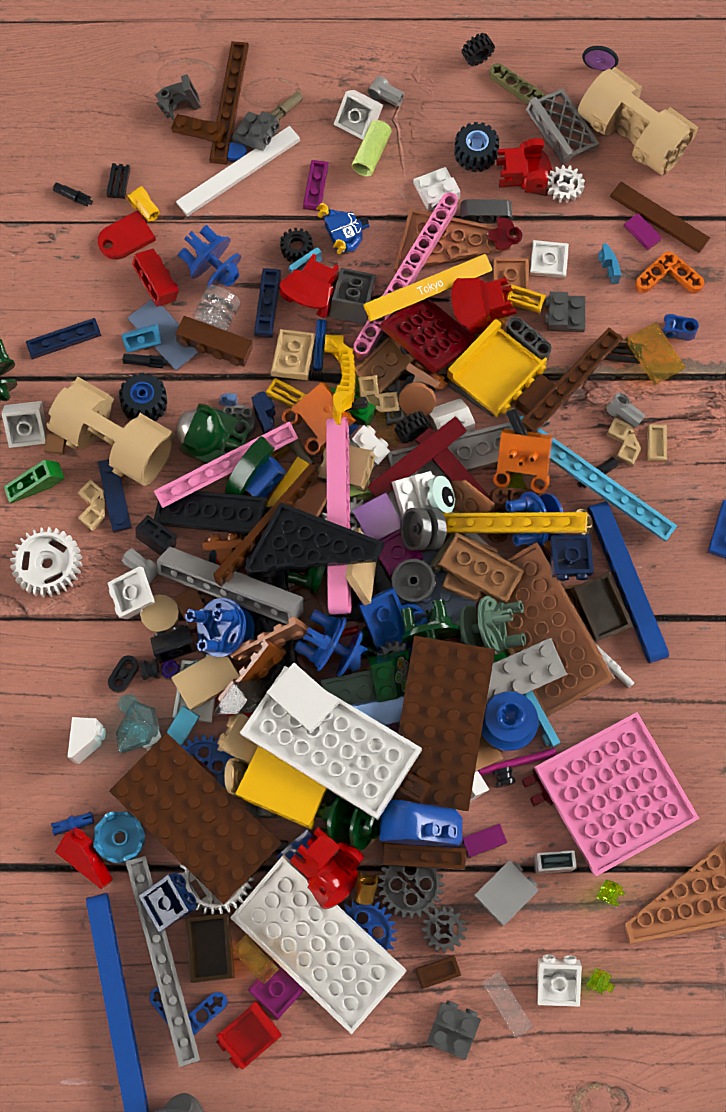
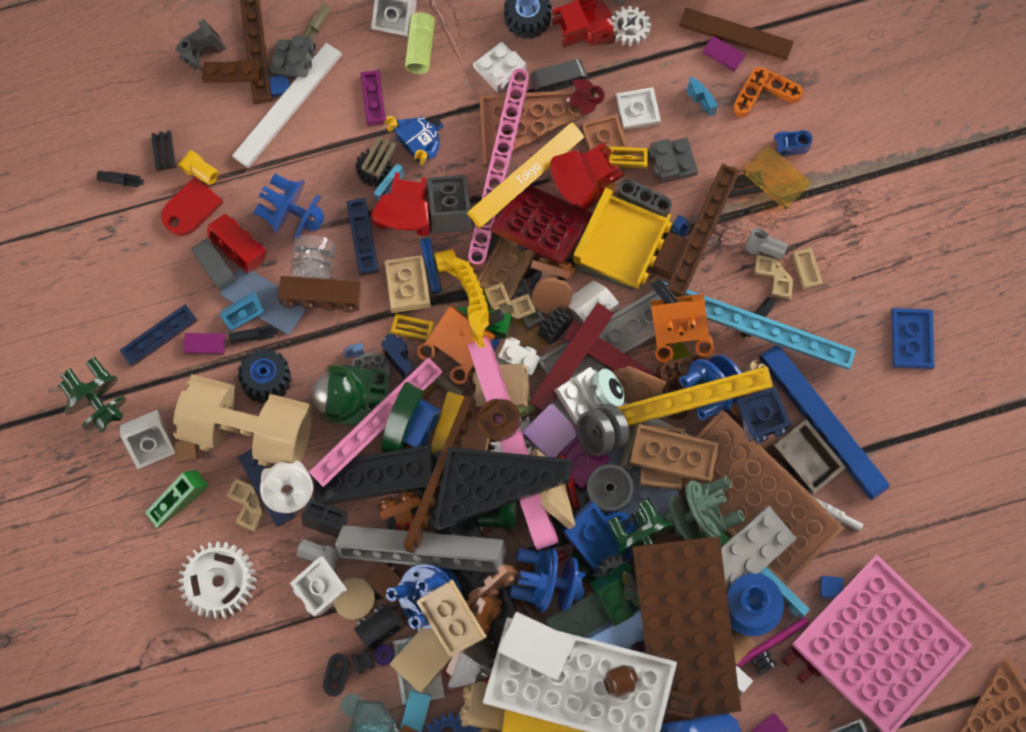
camera: 15 degrees left, 0 degrees up
(100, 356) = (204, 343): none -> magenta tile
(129, 290) = (213, 264): none -> dark grey beam
(130, 486) = (286, 474): none -> white plate
(235, 651) = (451, 618): none -> tan tile
(301, 236) = (379, 141): none -> dark tan tile
(336, 500) = (487, 419): none -> reddish brown plate
(365, 749) = (620, 681): none -> reddish brown head
(380, 569) = (571, 489): none -> red piece
(553, 372) = (680, 226): none -> blue tile
(586, 728) = (830, 586): none -> blue tile

